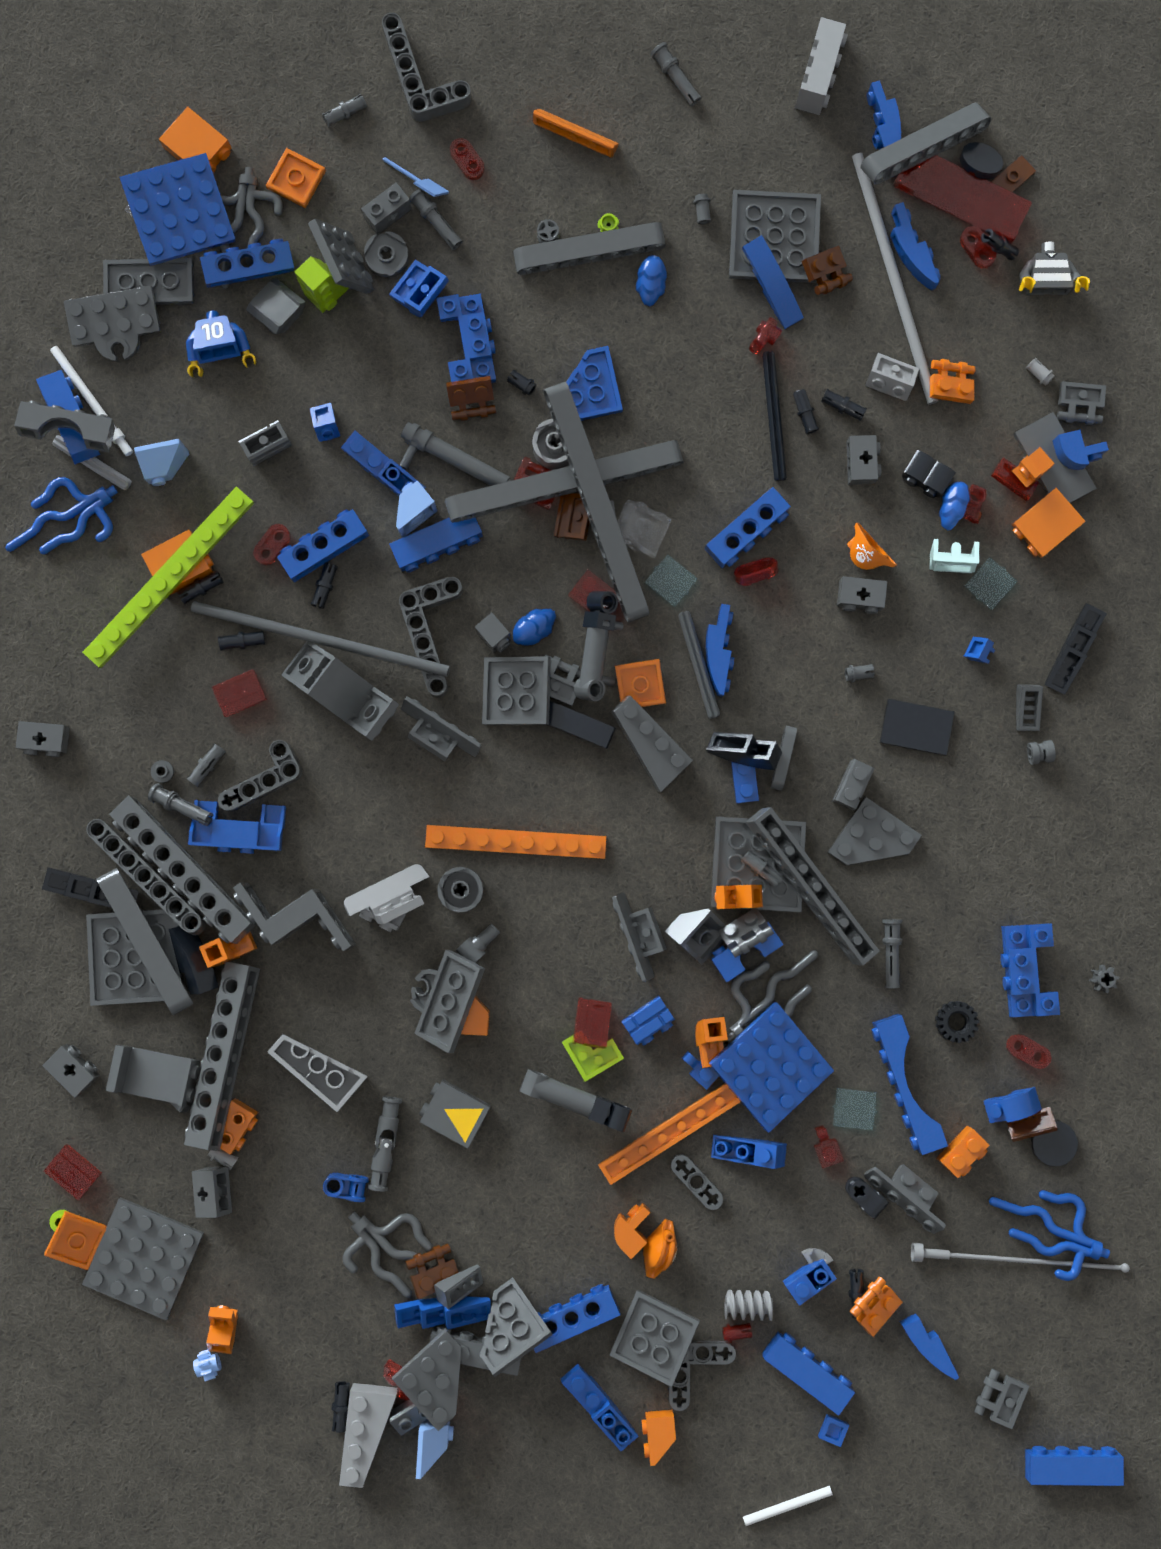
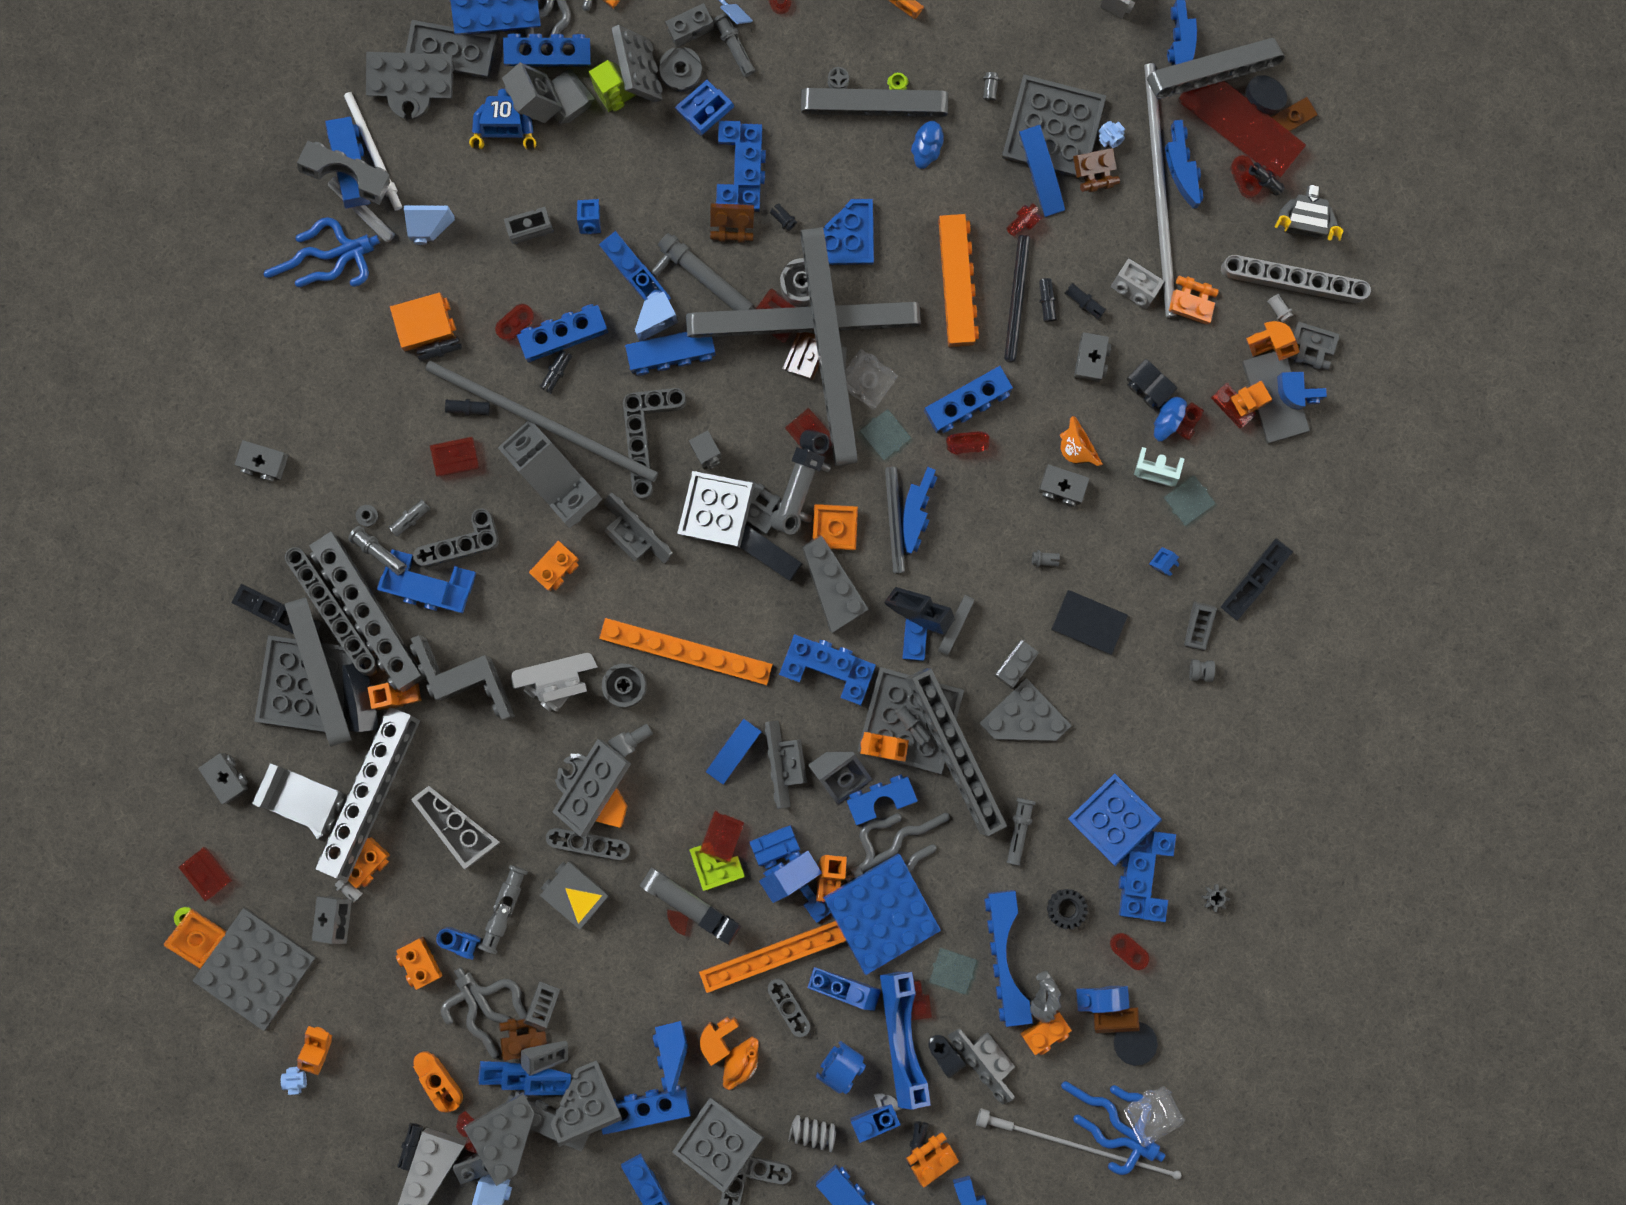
camera: 15 degrees right, 0 degrees up
(168, 577) = (411, 334): lime plate -> none
(240, 307) = (532, 93): none -> dark grey brick
(310, 1217) = (418, 963): none -> orange brick
(340, 1320) = (428, 1065): none -> orange piece
(364, 783) = (554, 566): none -> orange brick
(440, 1252) = (533, 1021): none -> dark grey slope
(457, 1062) = (587, 847): none -> dark grey beam
(534, 626) = (746, 451): blue arm -> none
(565, 1118) = (677, 921): none -> clear red tile
(585, 933) = (733, 751): none -> blue slope
(588, 1249) = (673, 1049): none -> blue slope
(666, 822) = (831, 662): none -> blue bracket
(668, 1052) = (787, 878): none -> brick
(710, 410) = (957, 281): none -> orange brick
(735, 1332) = (794, 1156): clear red pin -> none
(746, 932) = (884, 782): dark grey plate -> none
(764, 1233) = (840, 1068): none -> blue brick
(834, 232) = (1111, 134): none -> light blue gear
(836, 1232) = (909, 1080): none -> blue arch
(952, 1129) = (1039, 1007): none -> dark grey piece
(986, 921) = (1115, 819): none -> blue plate
(1044, 400) = (1275, 336): none -> orange brick
(1047, 523) = (1254, 454): orange brick -> none
(1057, 333) = (1305, 277): none -> light grey beam
(1090, 1213) = (1154, 1115): none -> clear slope

